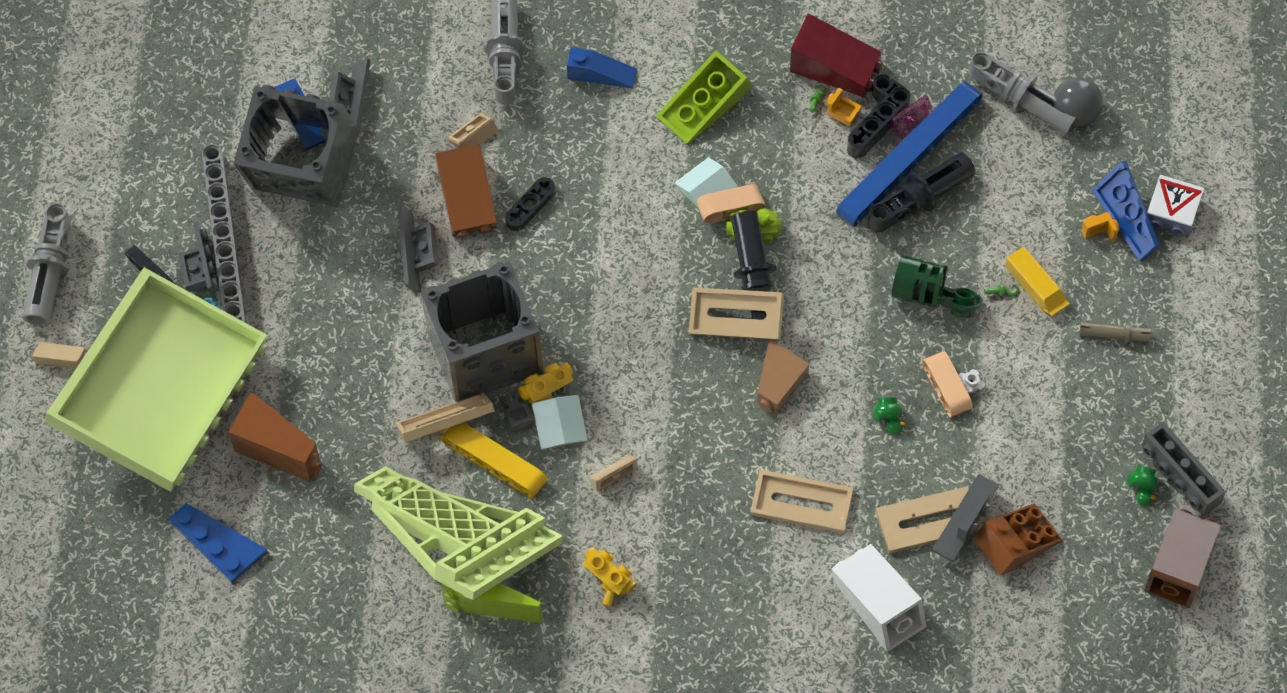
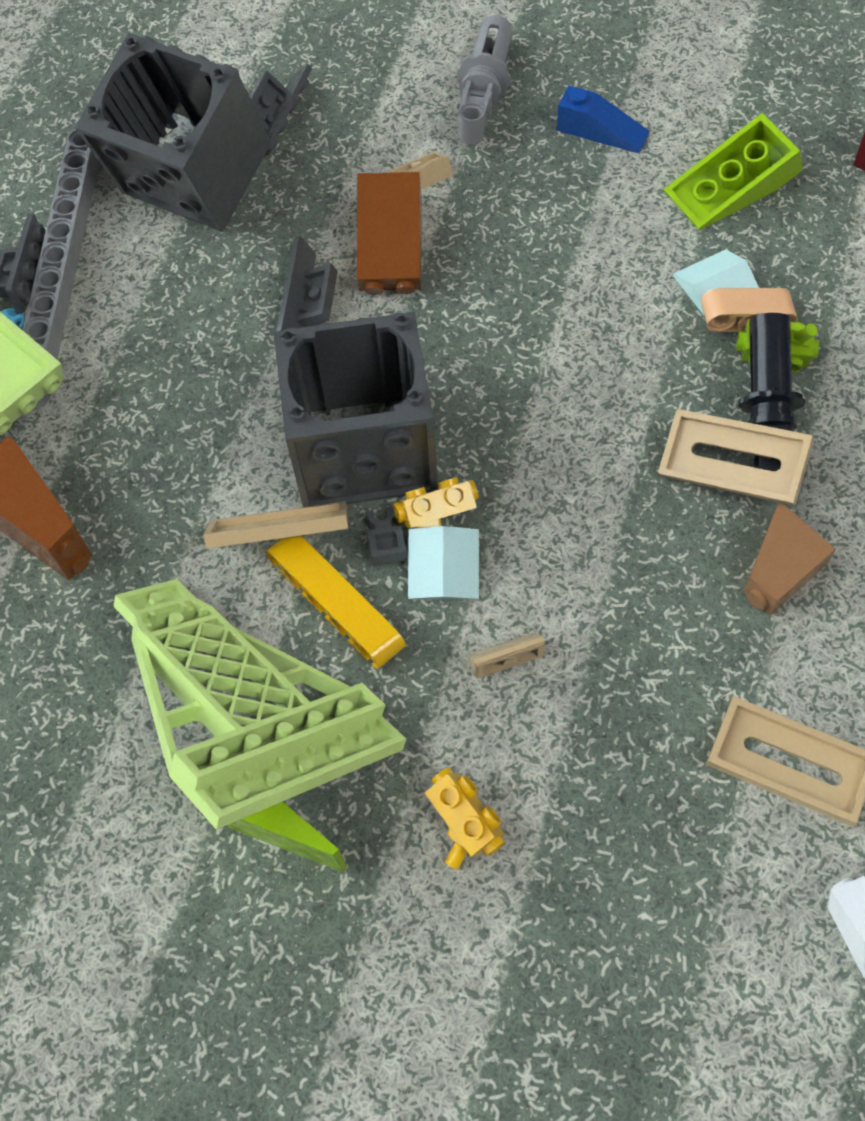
camera: 15 degrees right, 0 degrees up
(531, 194) = (475, 256): black beam -> none

